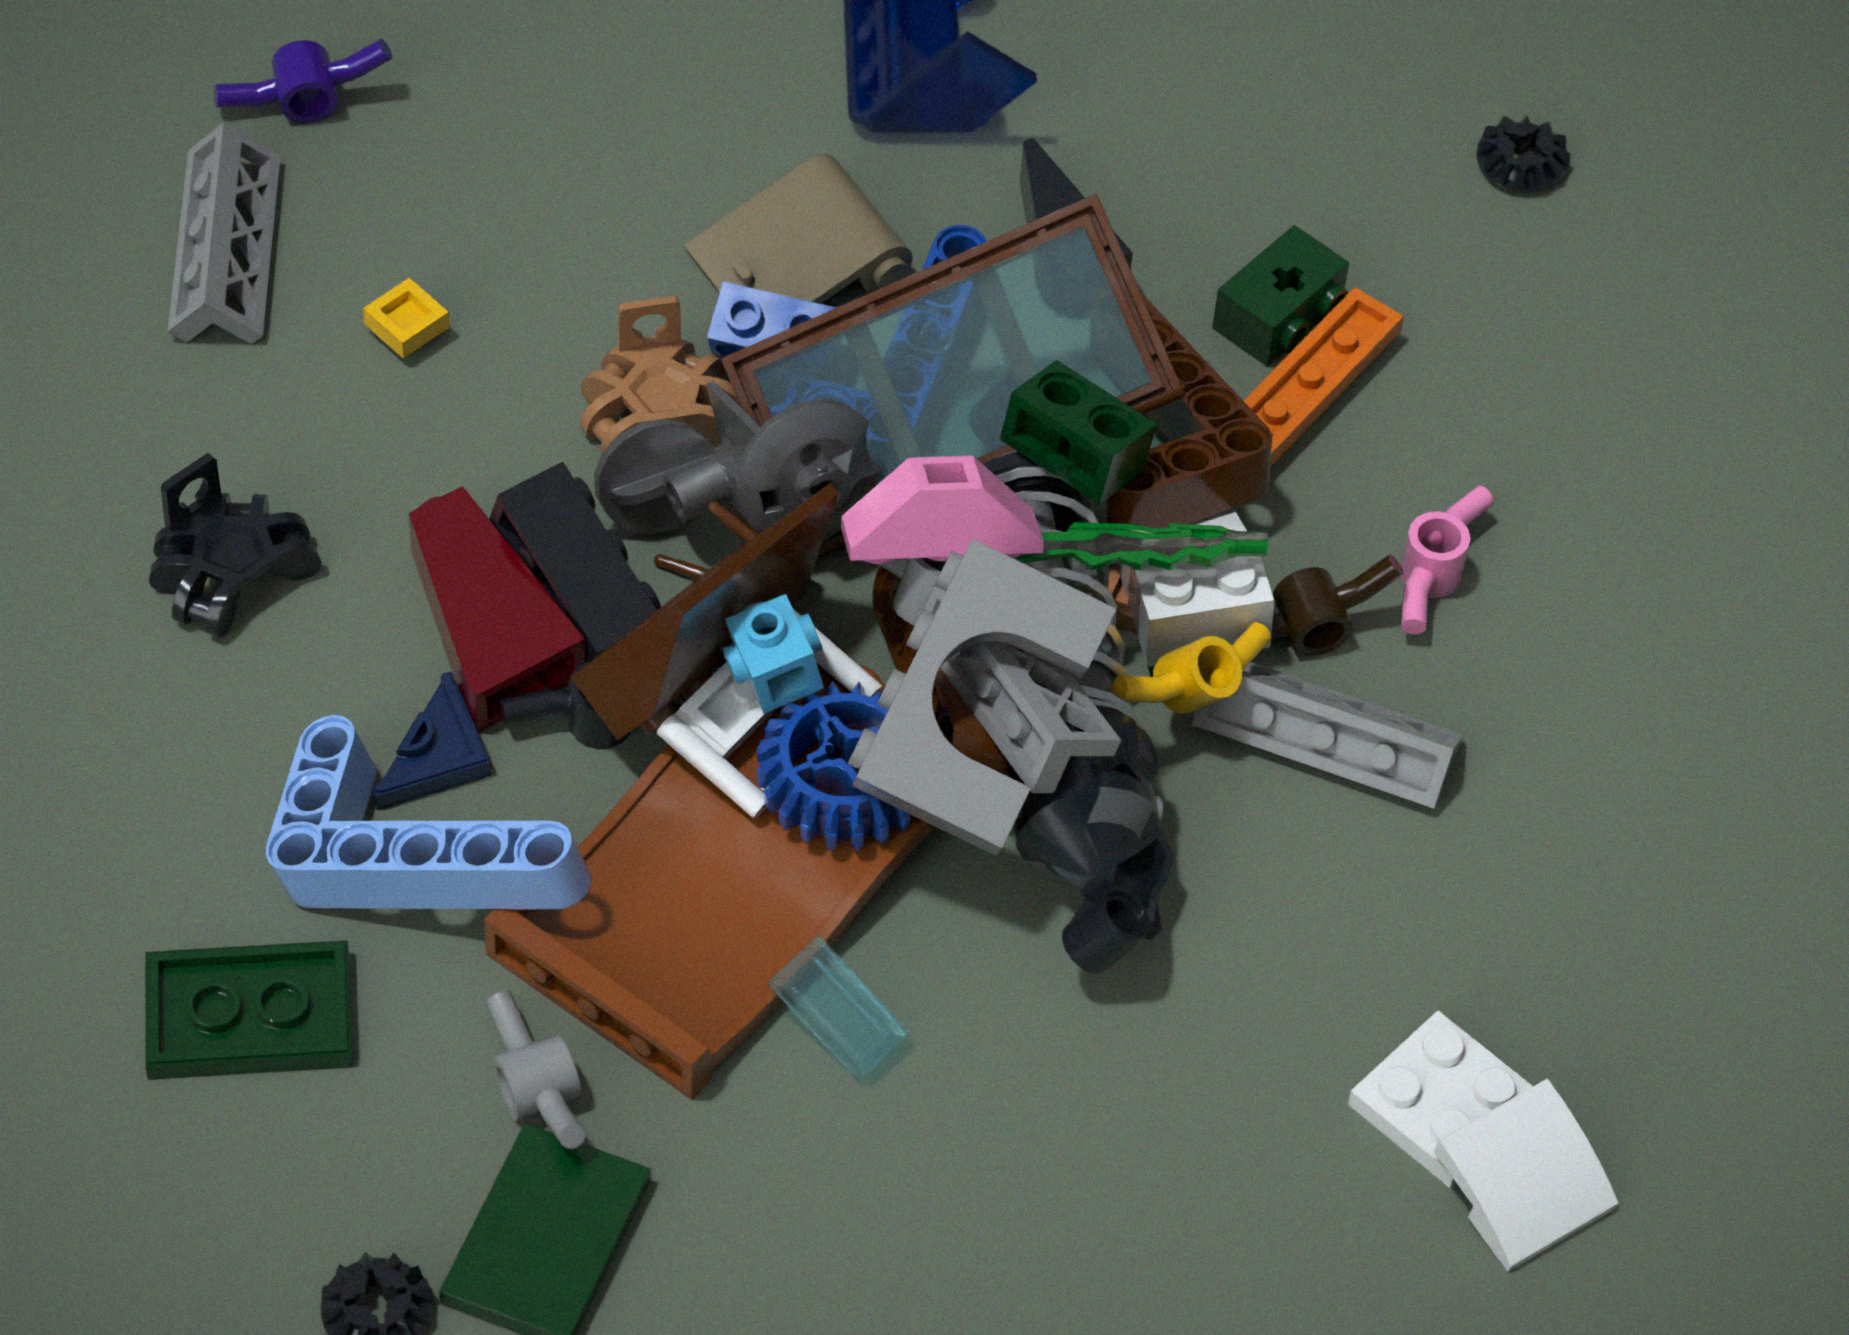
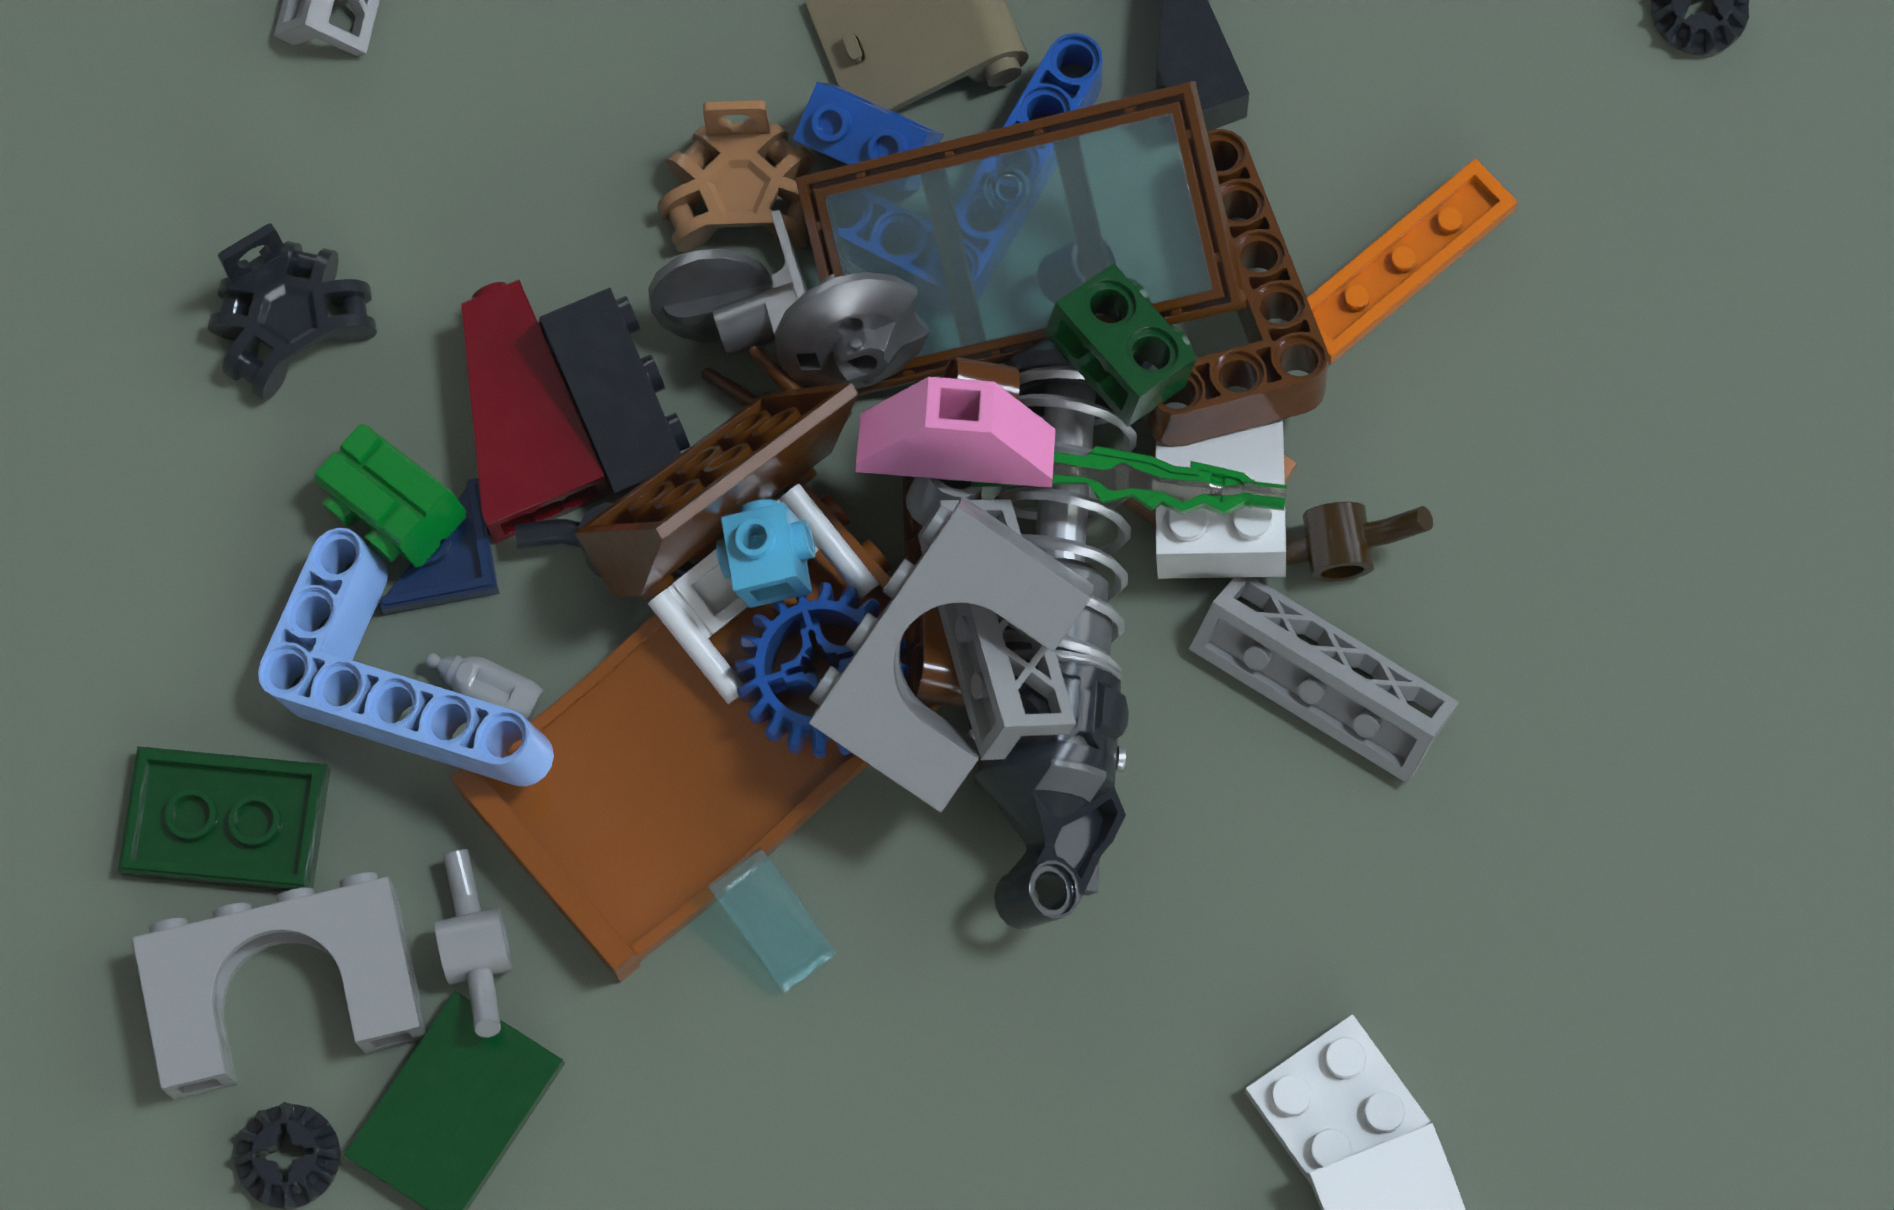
camera: 20 degrees right, 20 degrees up
(372, 685) = (389, 497): none -> green brick
(401, 1078) = (191, 966): none -> light grey arch
(406, 318) = (508, 55): yellow plate -> none
(1196, 672) = (1171, 612): yellow piece -> none
(1280, 295) = (1413, 128): dark green brick -> none
(1437, 555) = (1467, 516): bright pink piece -> none

